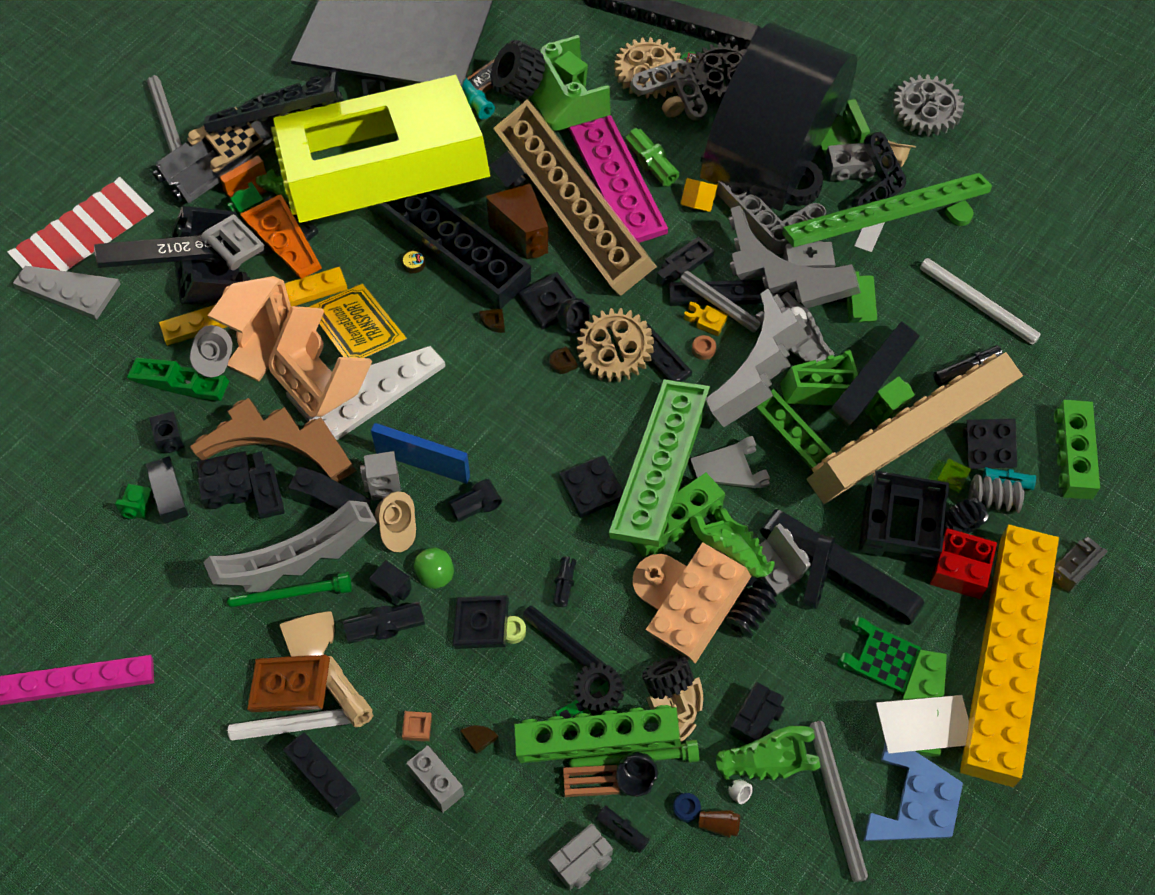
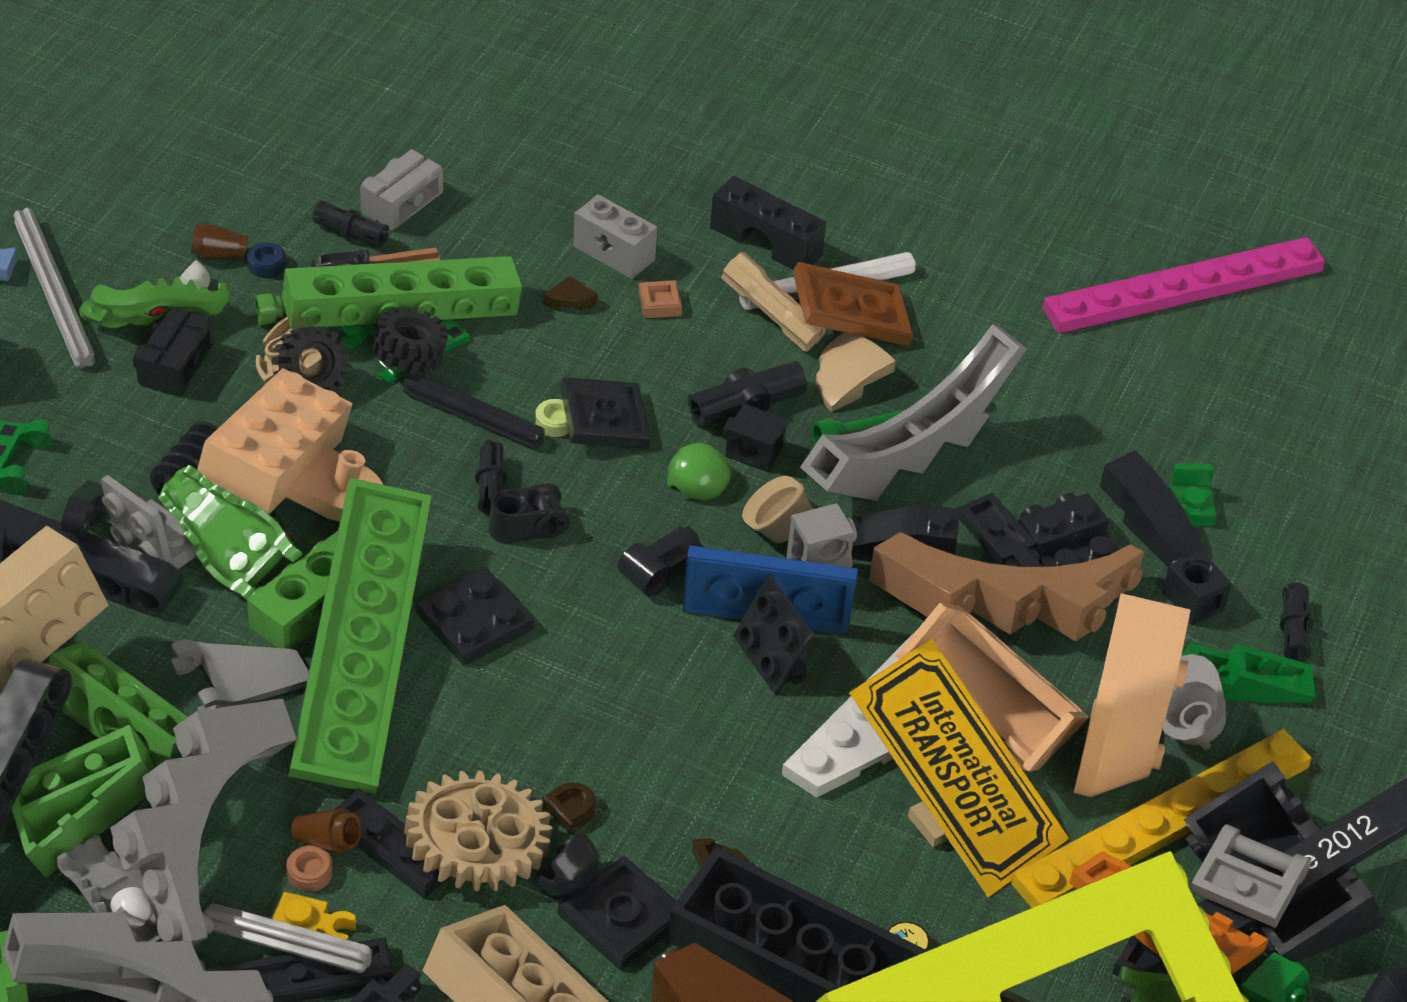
camera: 165 degrees right, 15 degrees down
(119, 406) = (1296, 622): none -> black pin
(426, 423) = (774, 636): none -> black hinge
(545, 546) = (524, 513): none -> black piece
(693, 356) = (330, 829): none -> reddish brown cone

